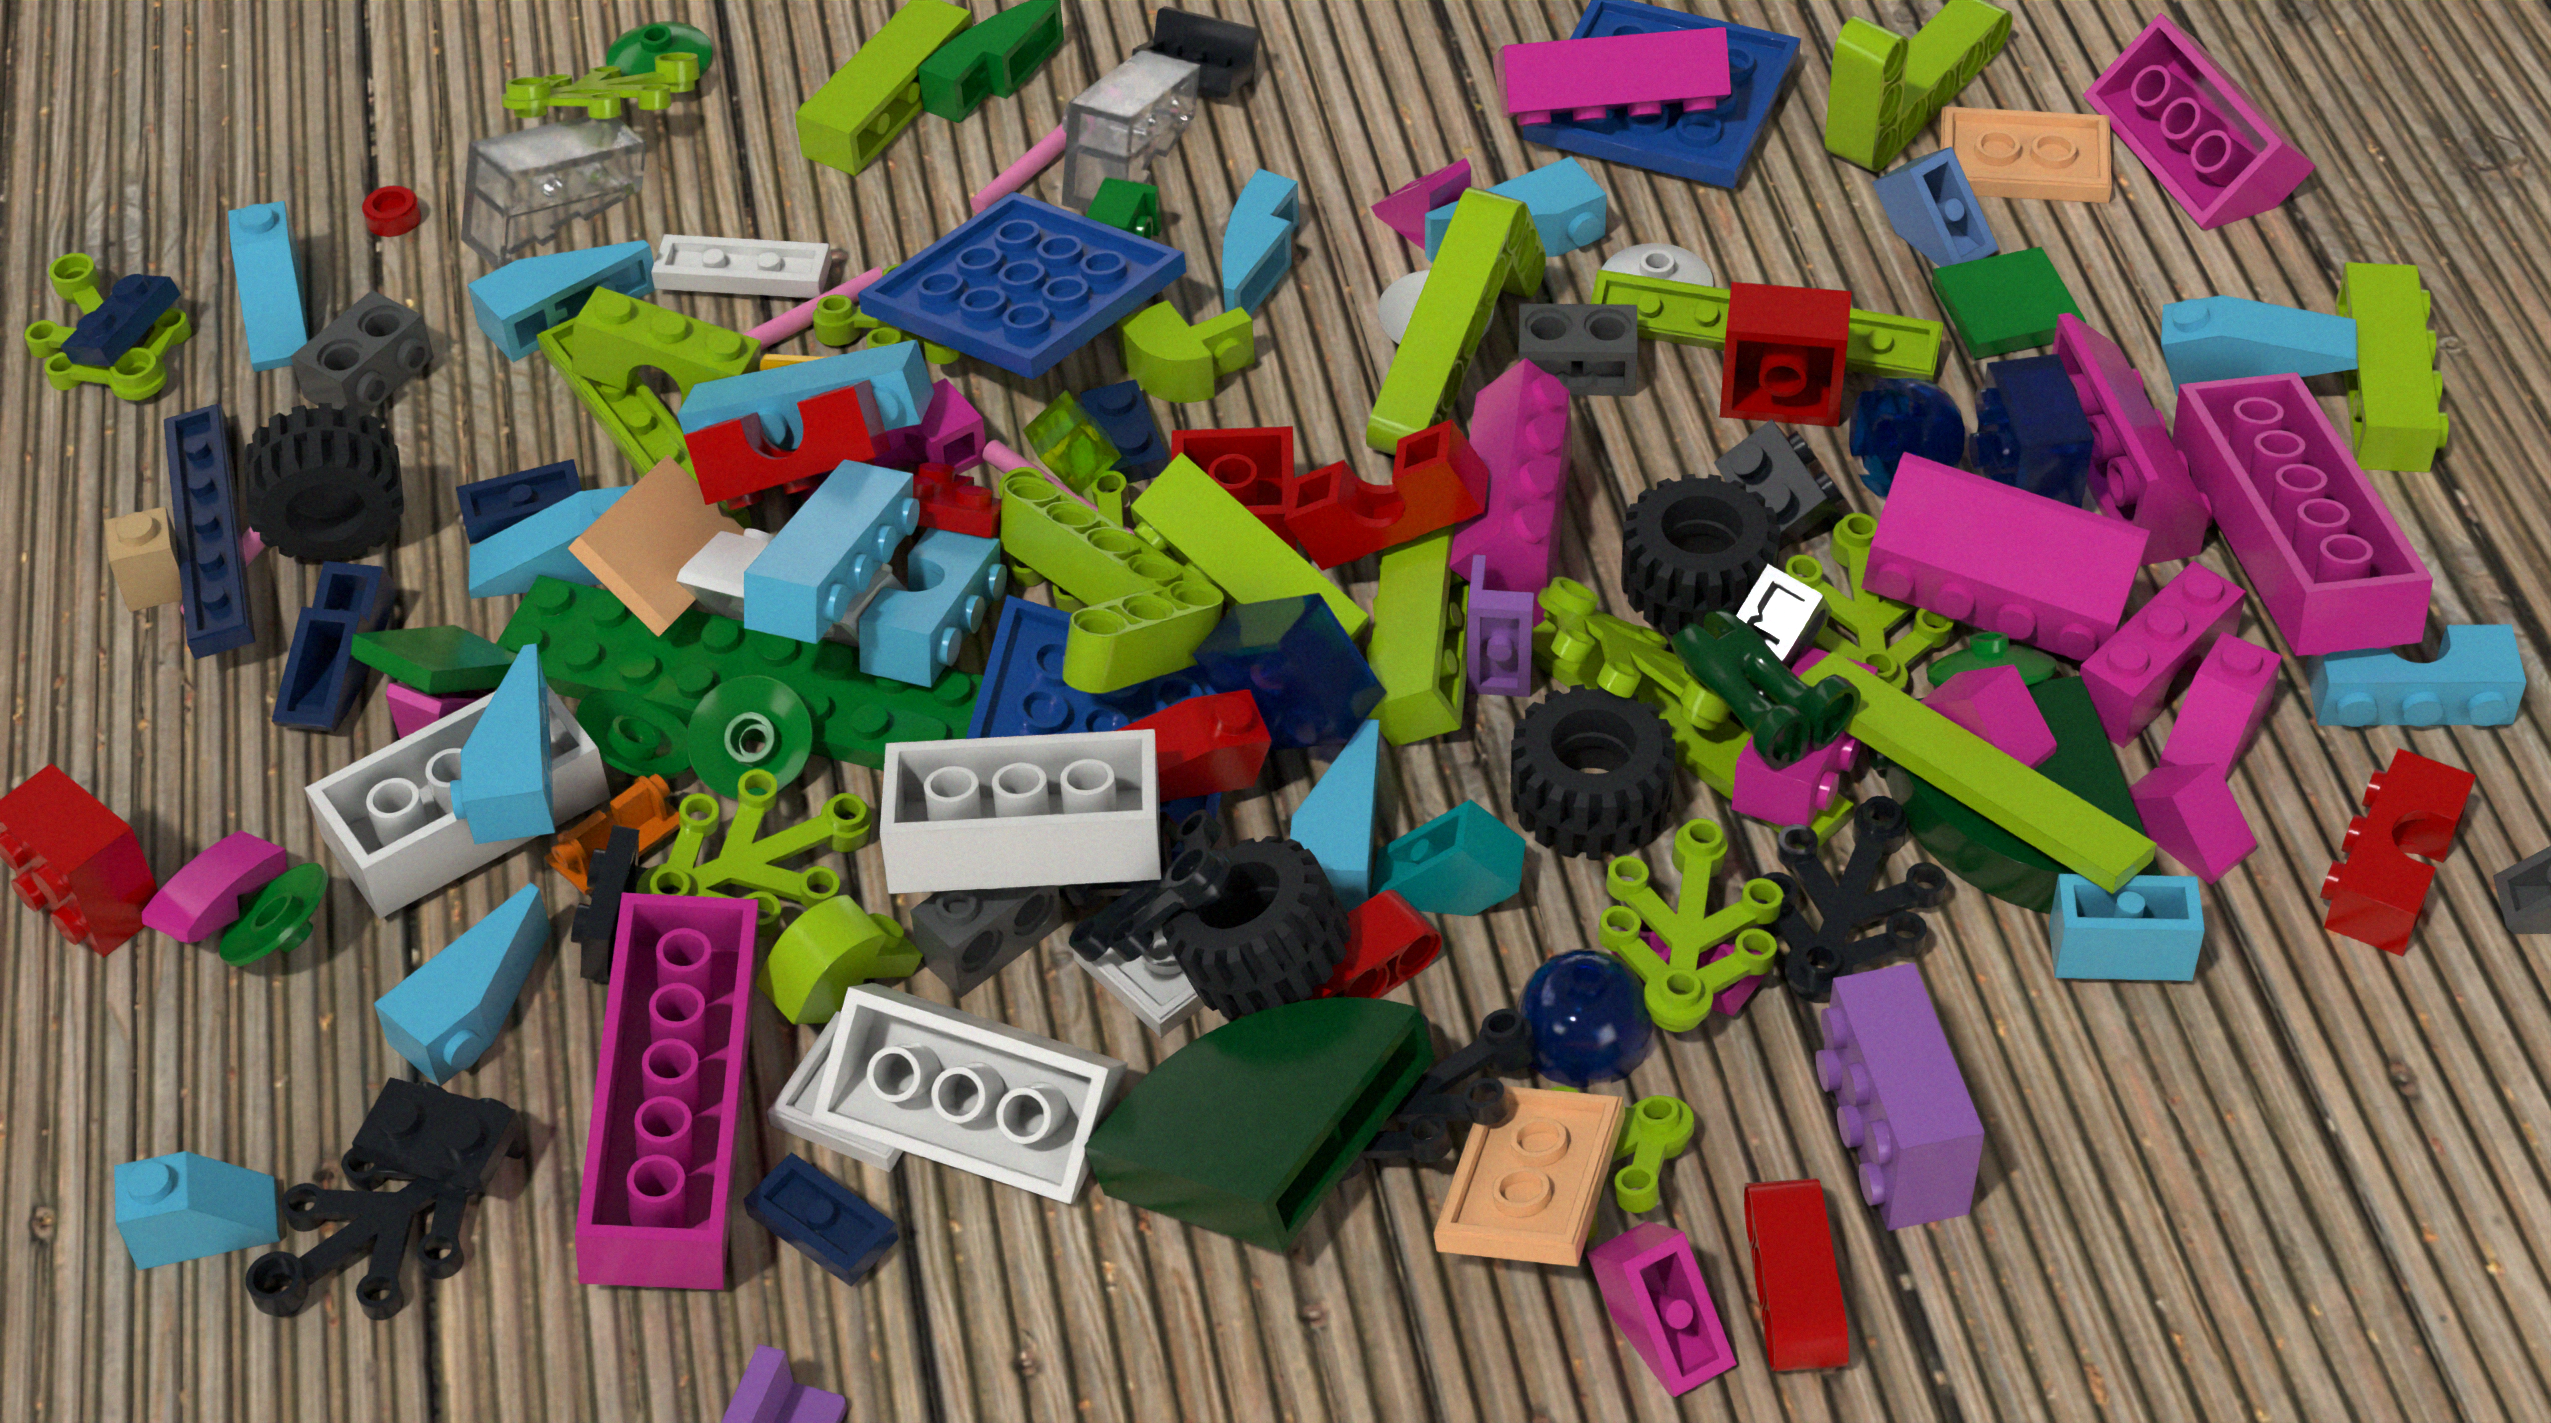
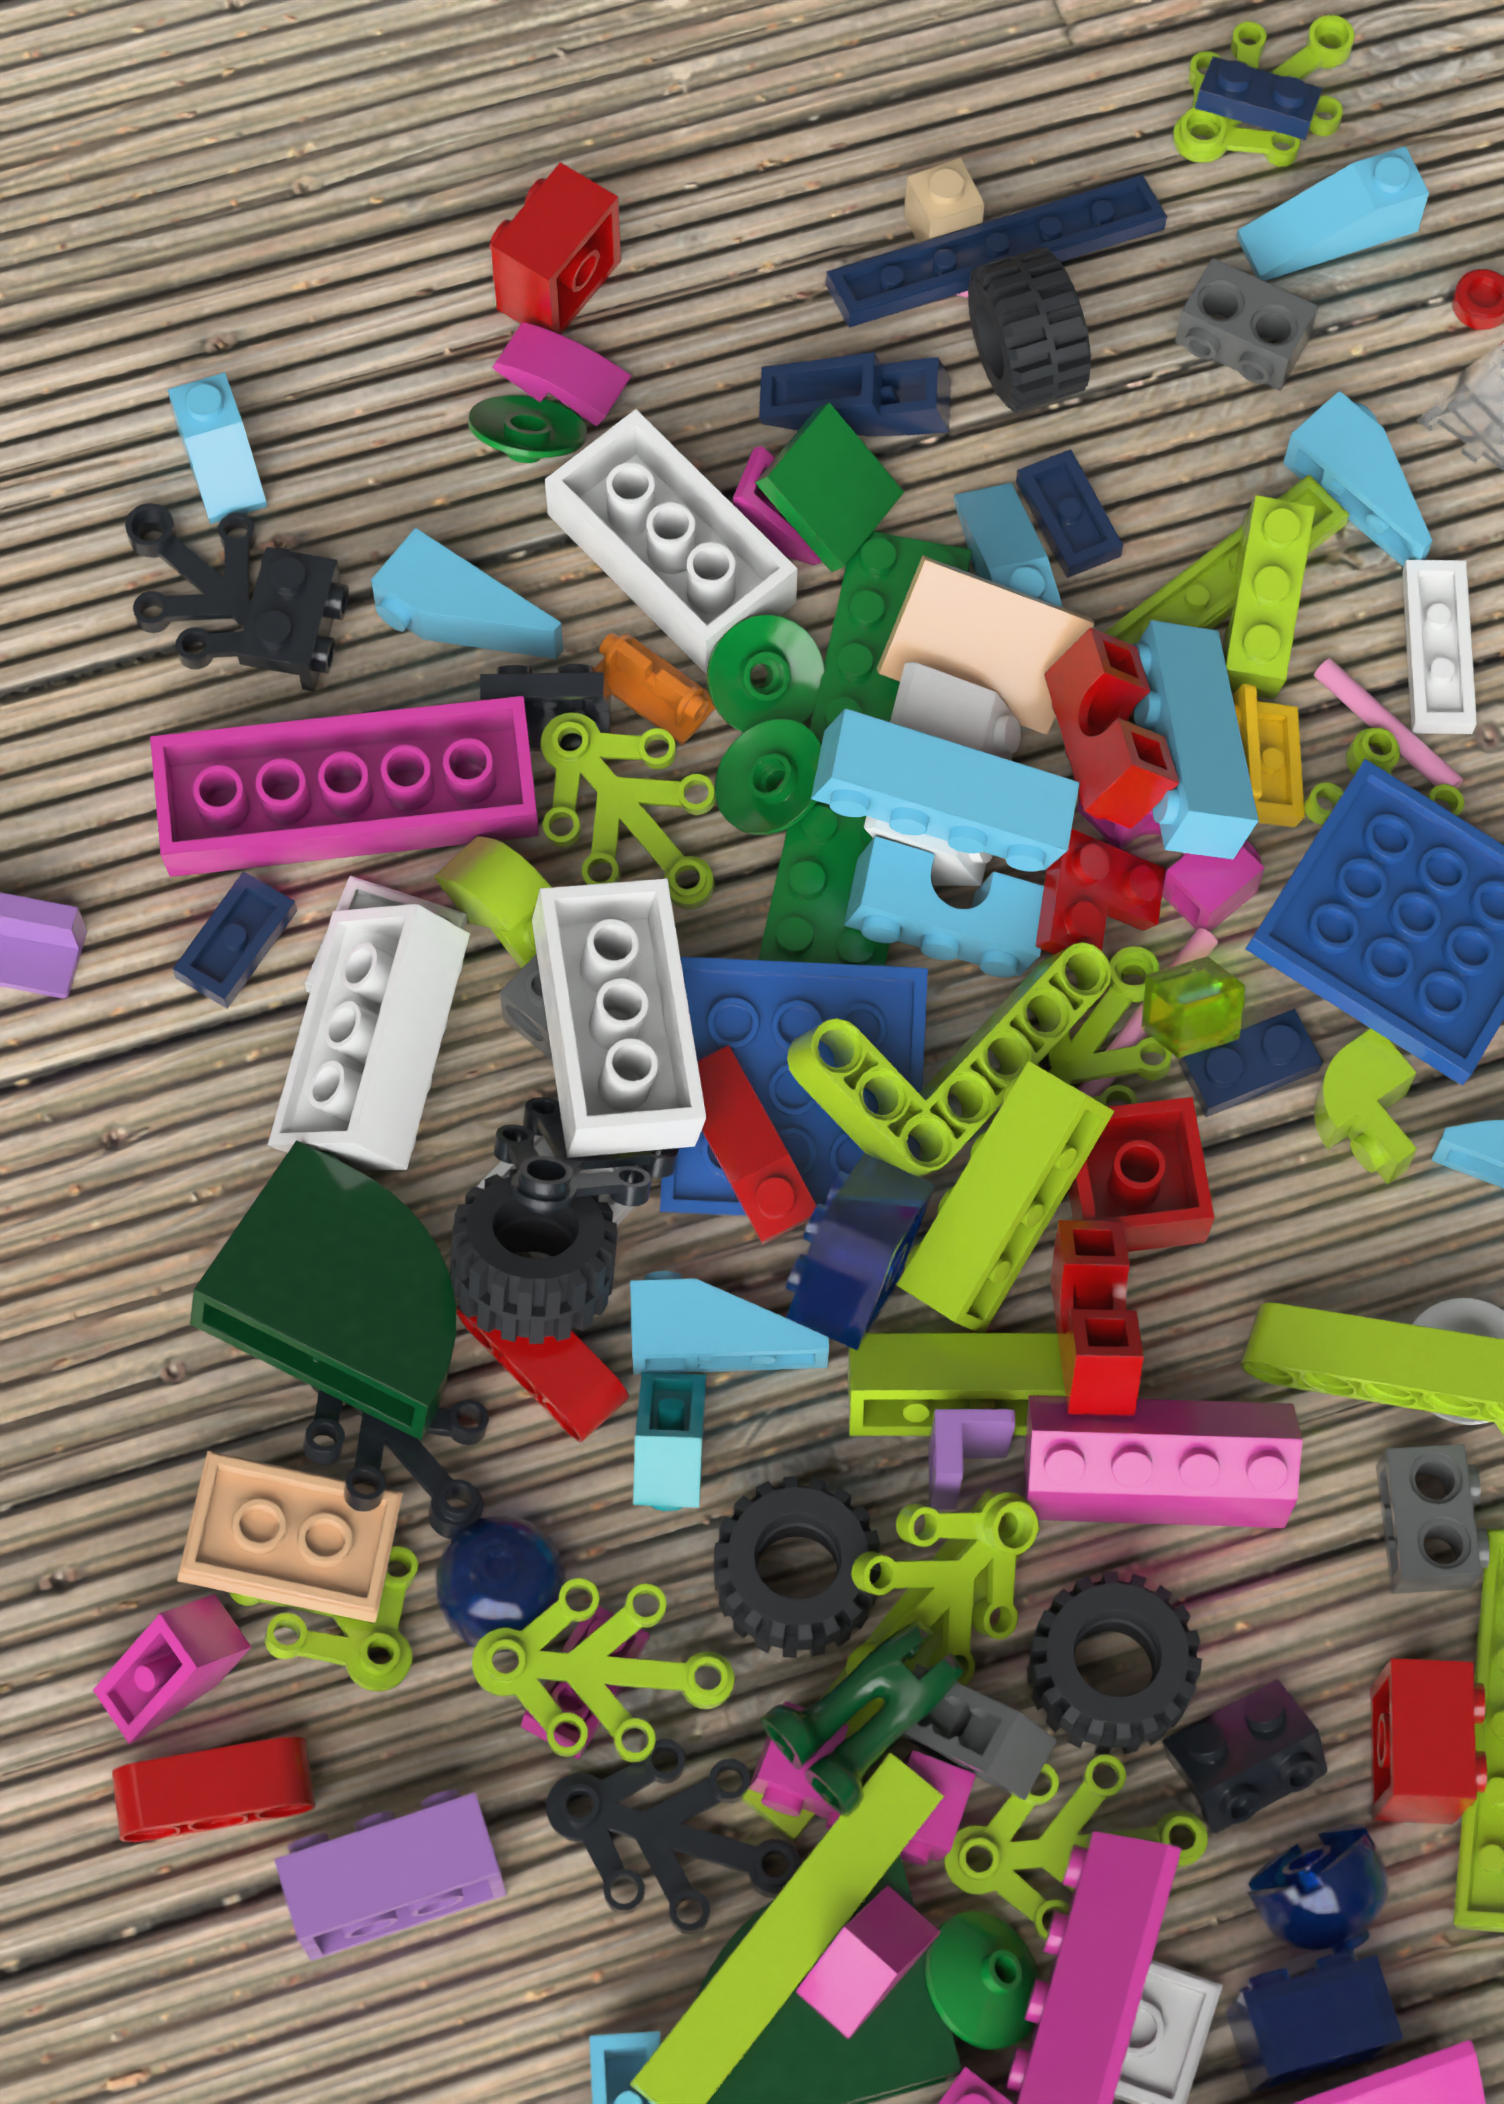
camera: 80 degrees right, 20 degrees up
(509, 760) = (660, 567): medium azure slope -> none

